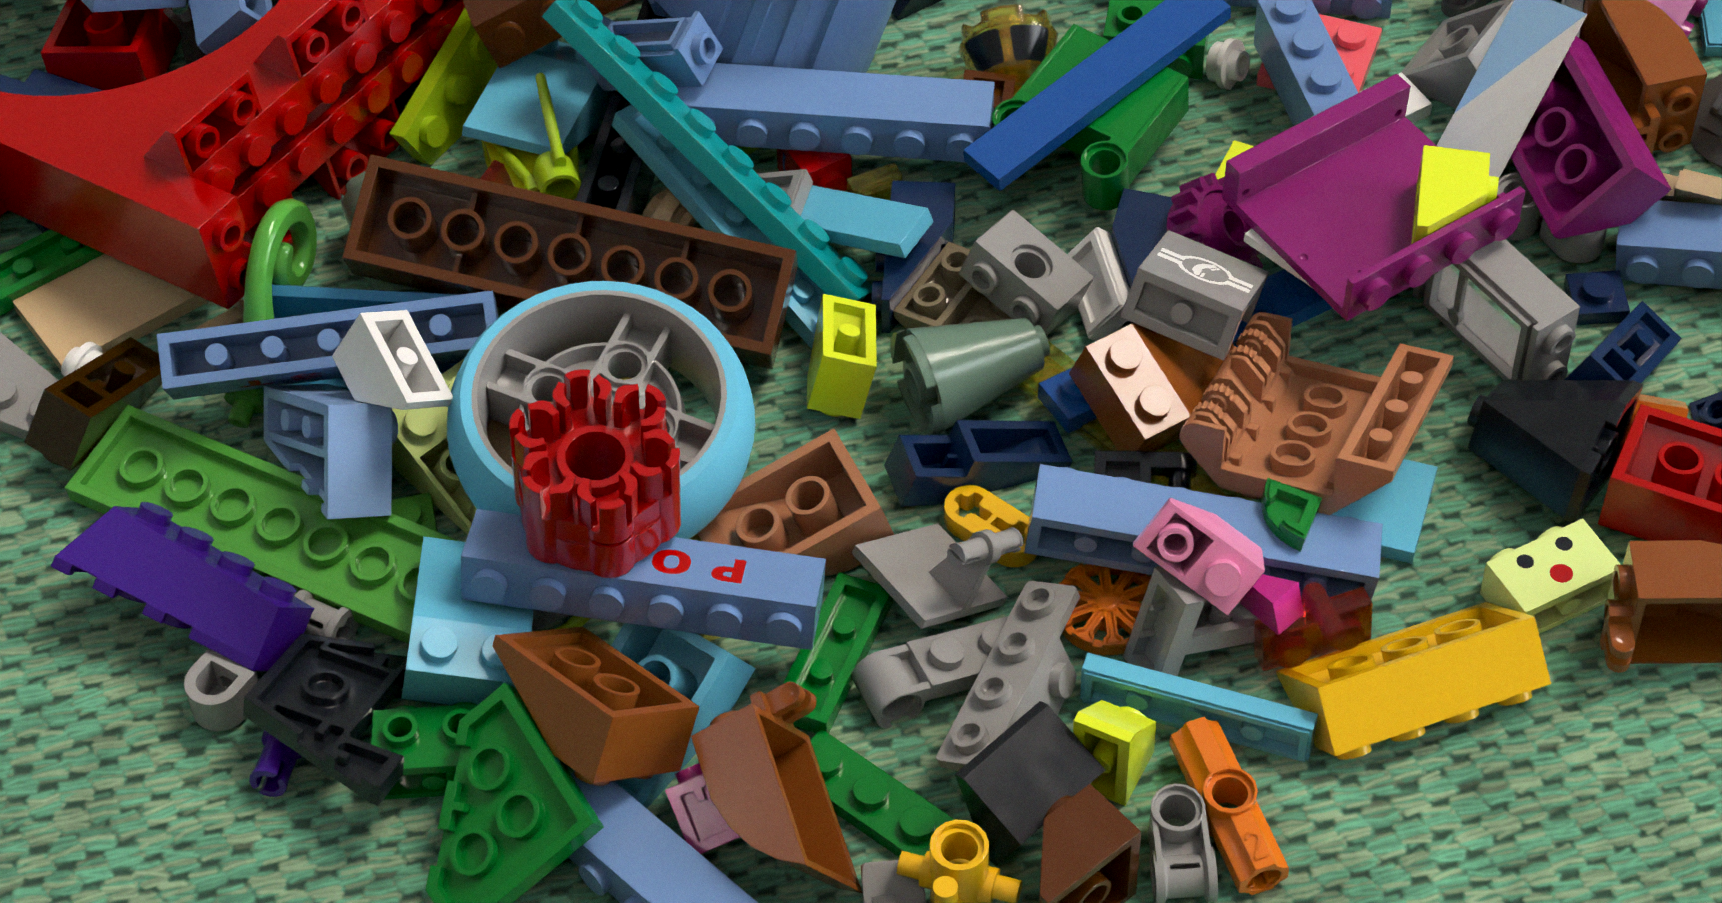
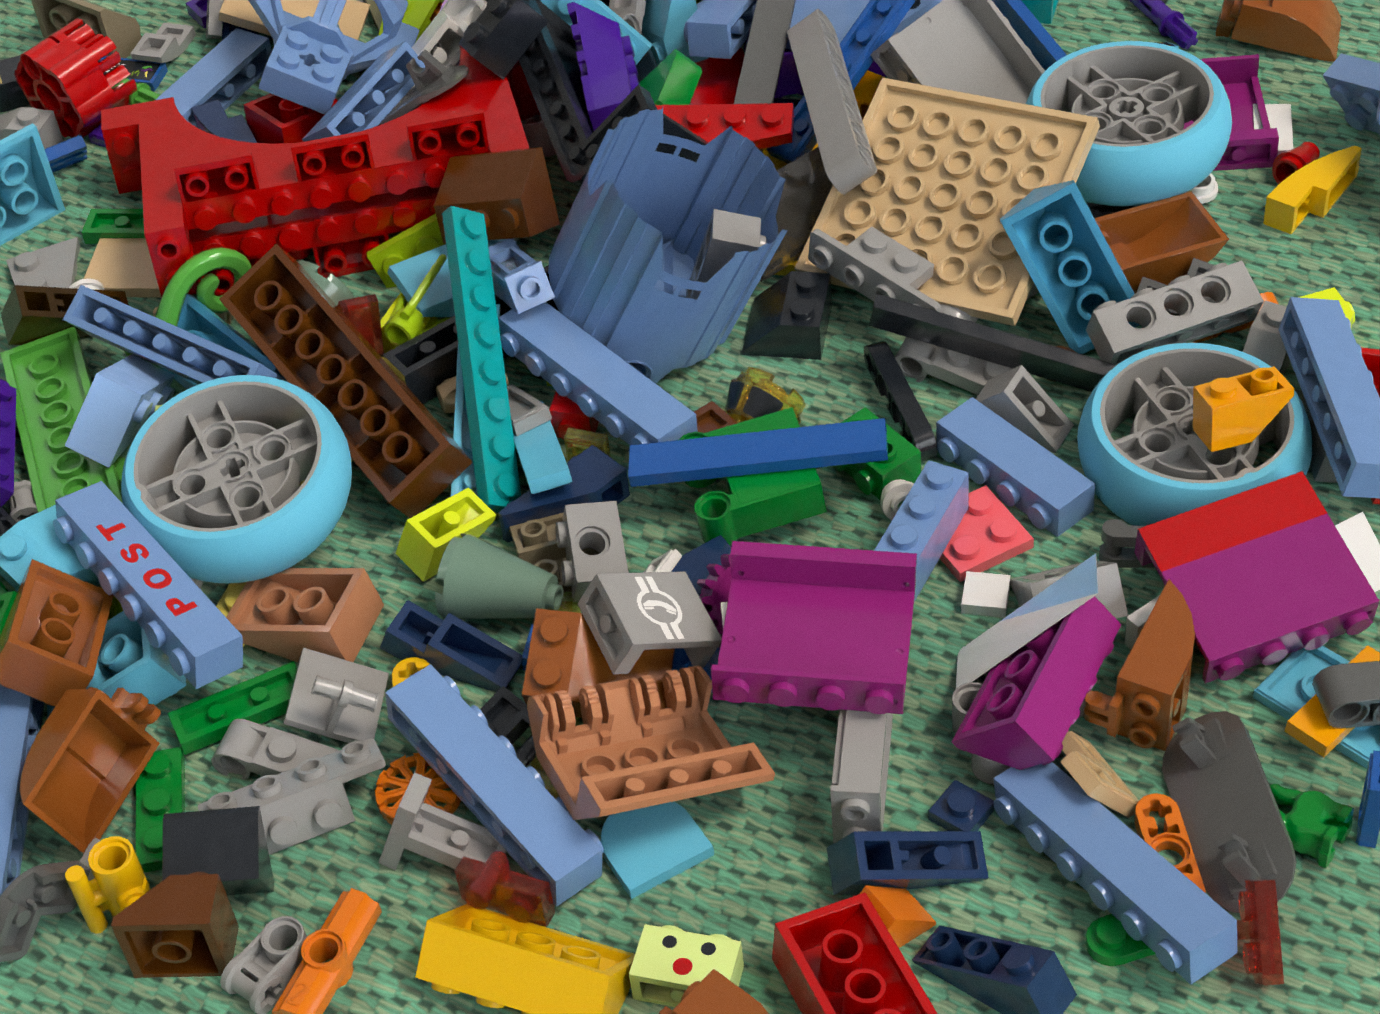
camera: 45 degrees right, 5 degrees down
(390, 363) = (154, 370): white slope -> none
(596, 476) = (143, 495): red piece -> none
(1120, 741) = (301, 870): neon yellow slope -> none
(1177, 700) = (380, 883): medium azure tile -> none
(1202, 553) = (443, 781): bright pink slope -> none
(1274, 602) = (473, 847): dark pink piece -> none
(1289, 512) = (543, 799): green tile -> none
(1450, 187) = (856, 648): neon yellow slope -> none
(1555, 436) = (789, 873): black slope -> none

